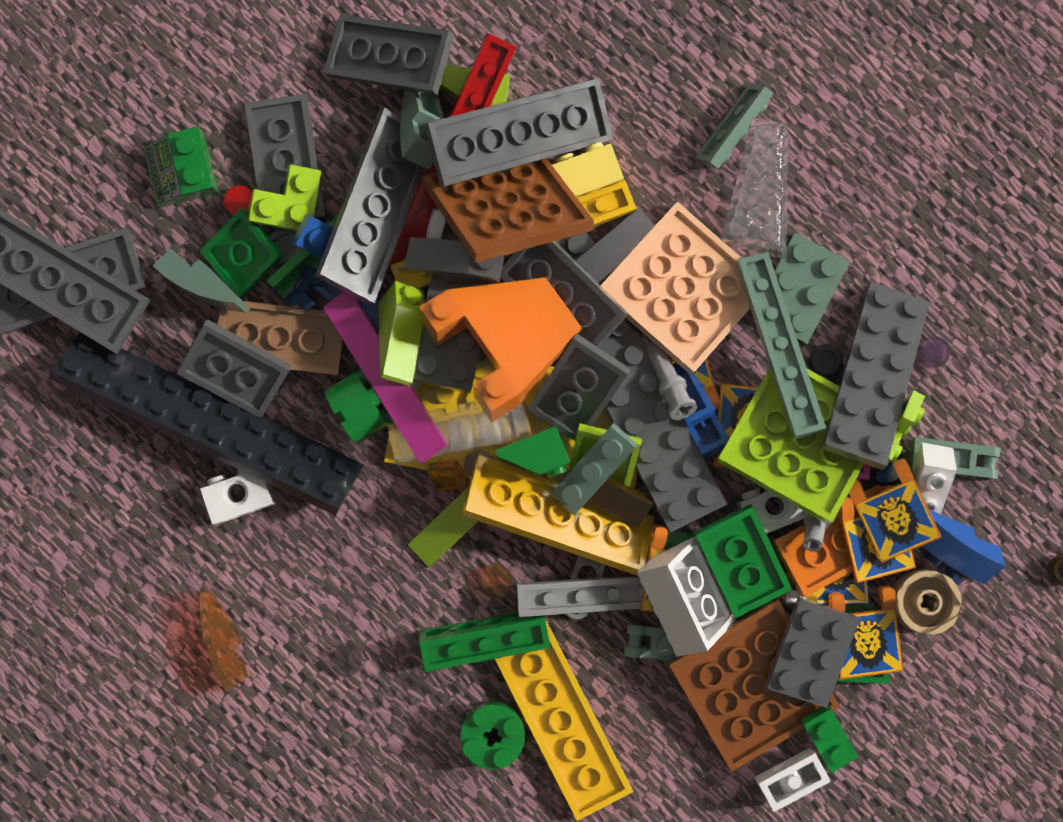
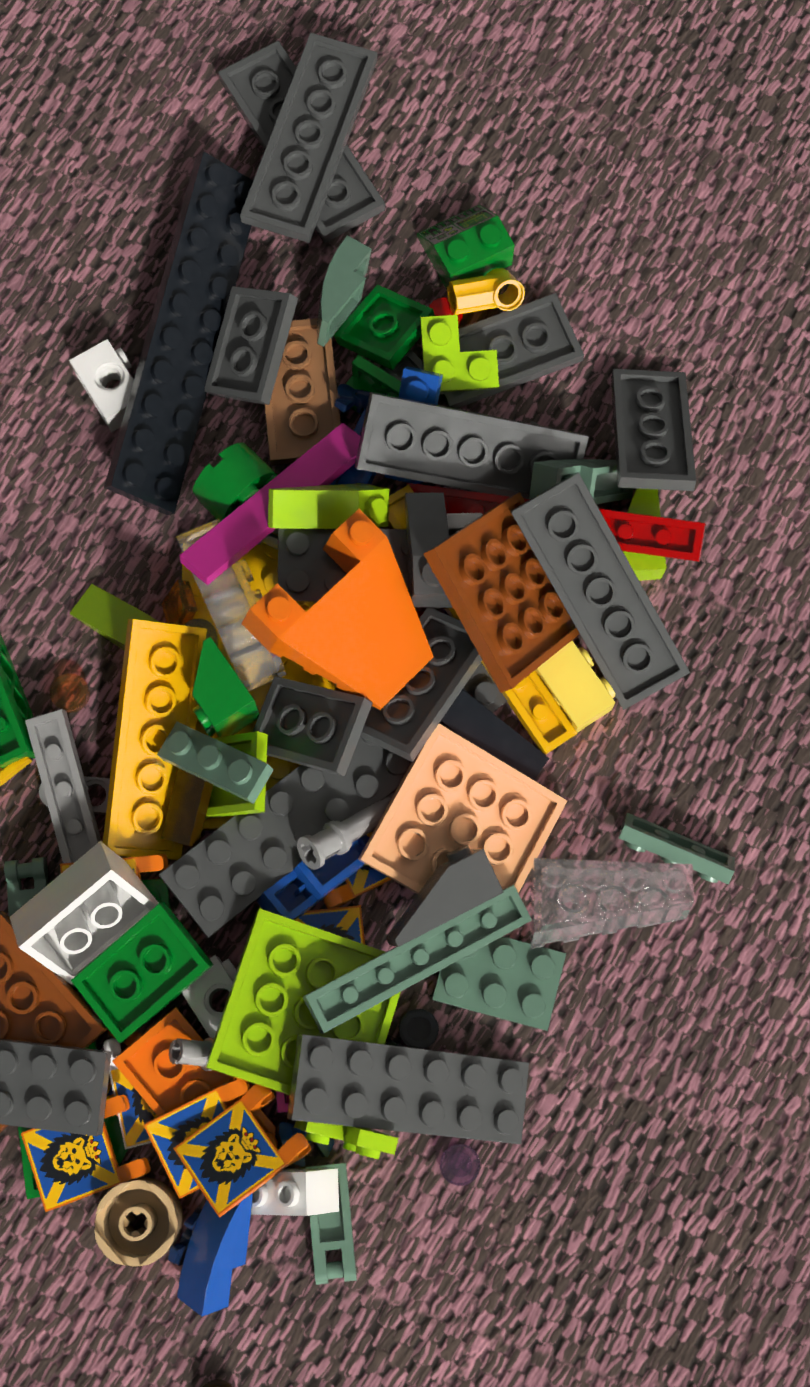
camera: 80 degrees right, 10 degrees down
(230, 154) = (482, 292): none -> yellow piece
(736, 311) = (450, 891): none -> dark grey slope

